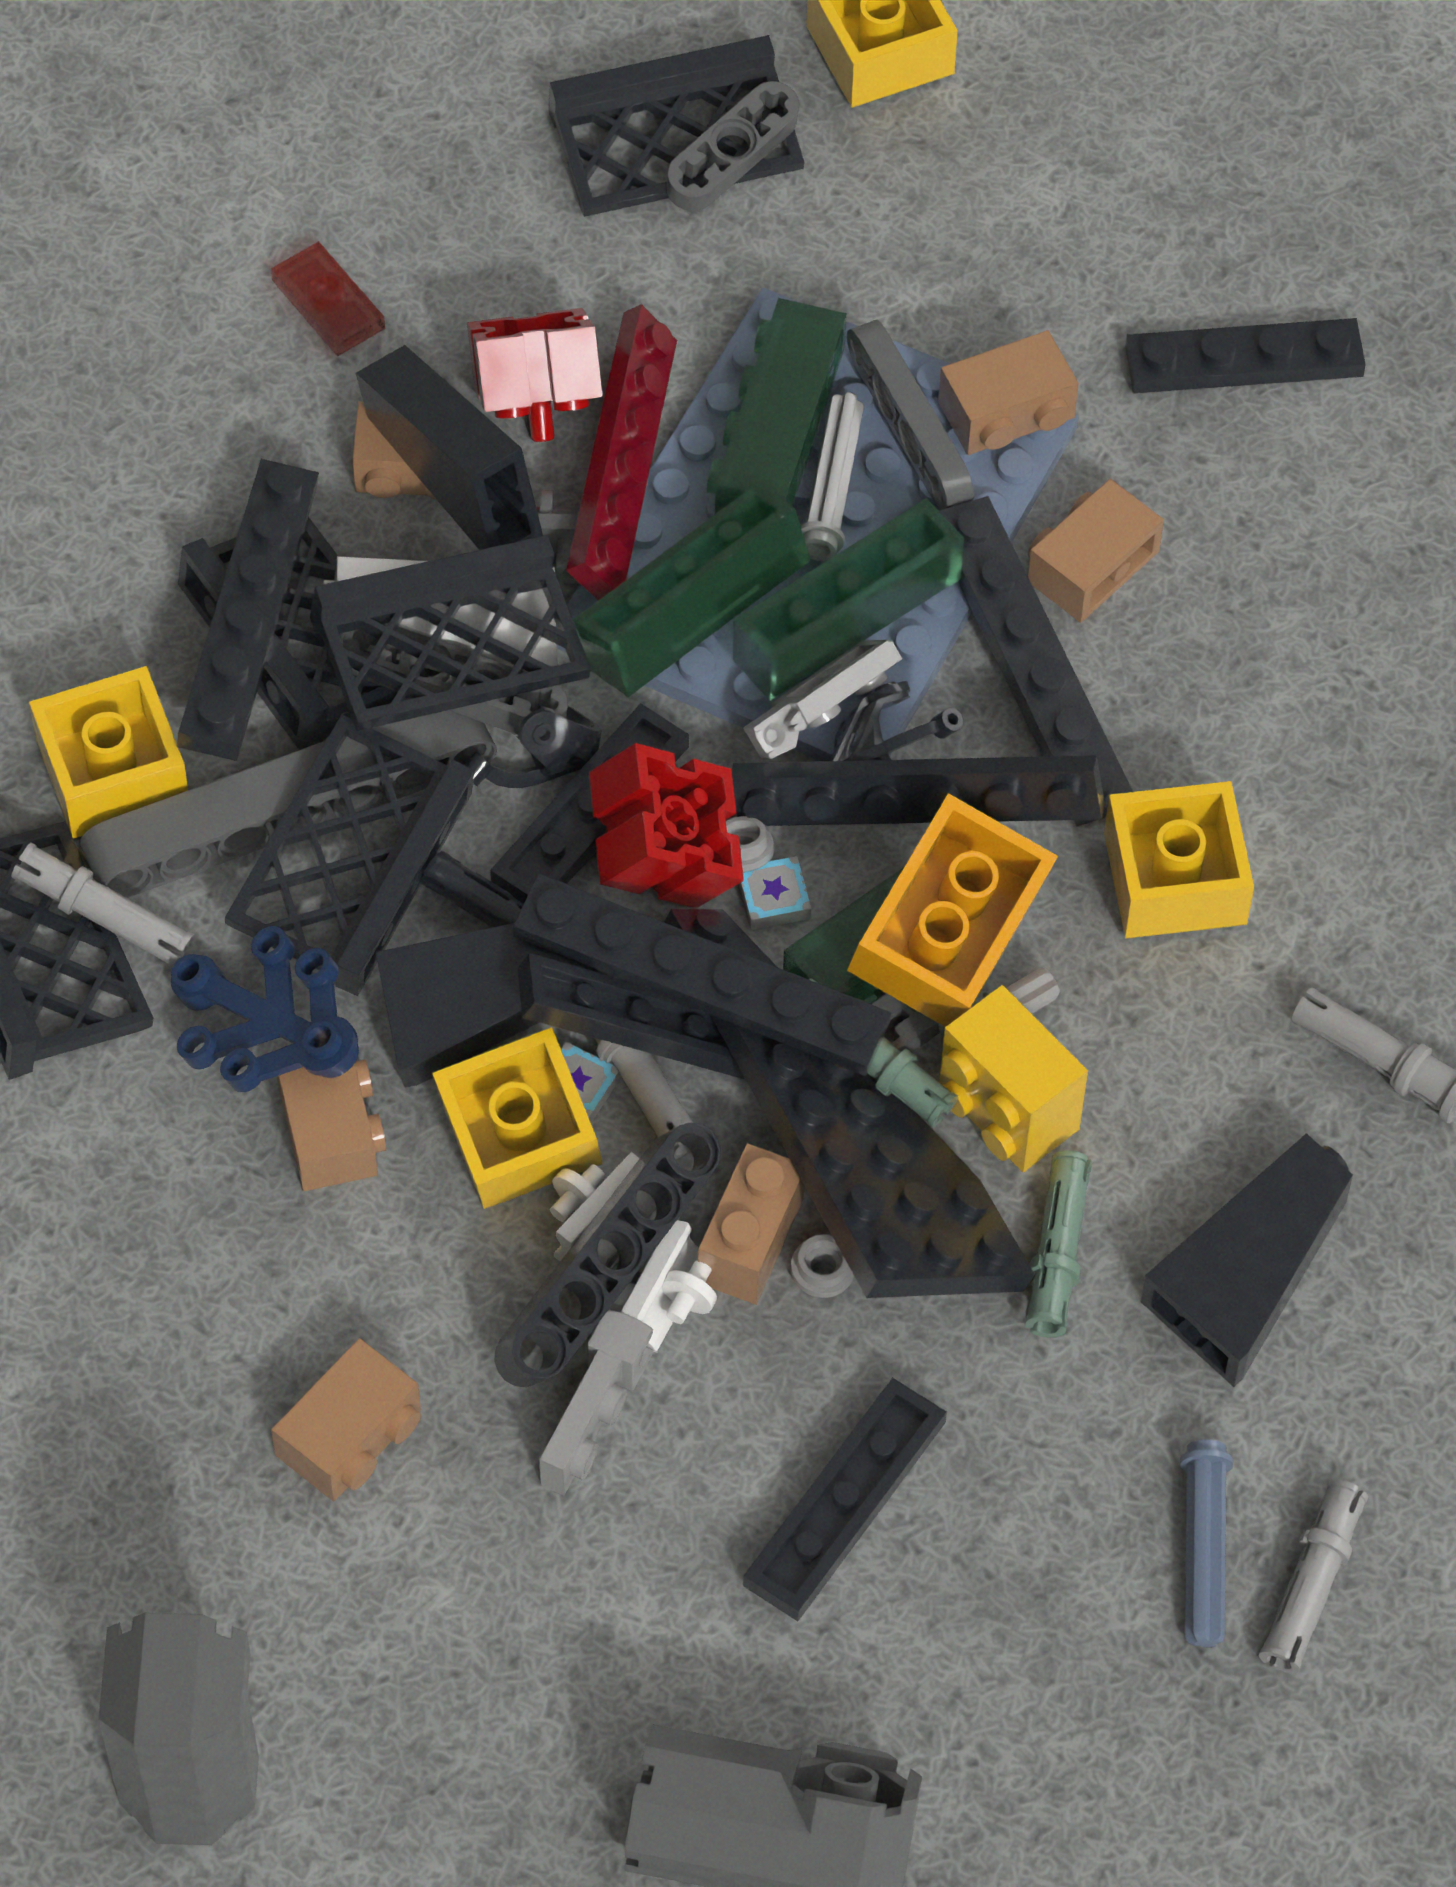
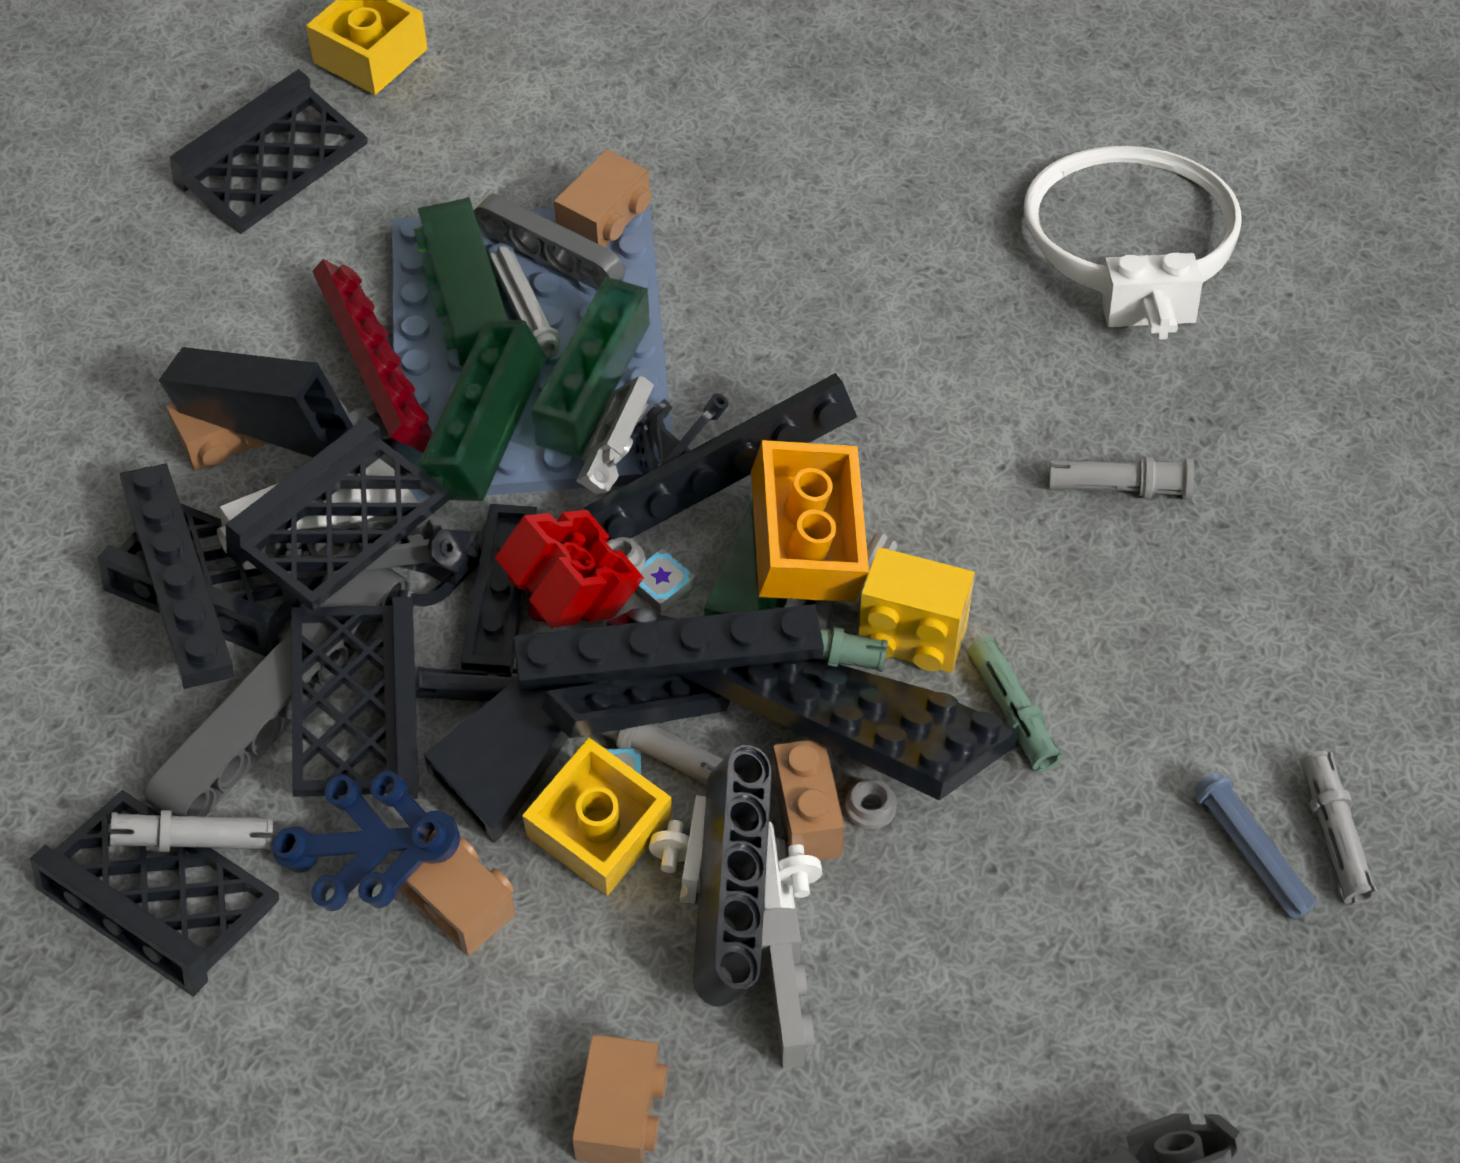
camera: 30 degrees left, 5 degrees down
(107, 748) = (127, 720): yellow brick -> none
(328, 298) = (96, 359): clear red plate -> none
(535, 361) = (277, 321): brick -> none
(726, 169) = (319, 161): dark grey beam -> none
(844, 1499) = (1003, 955): black plate -> none
(1028, 645) = (719, 345): black plate -> none
(1094, 549) = (717, 271): medium nougat brick -> none
(1178, 859) = (914, 423): yellow brick -> none
(1245, 355) = (723, 123): black plate -> none
(1246, 1260) = (1145, 651): black slope -> none

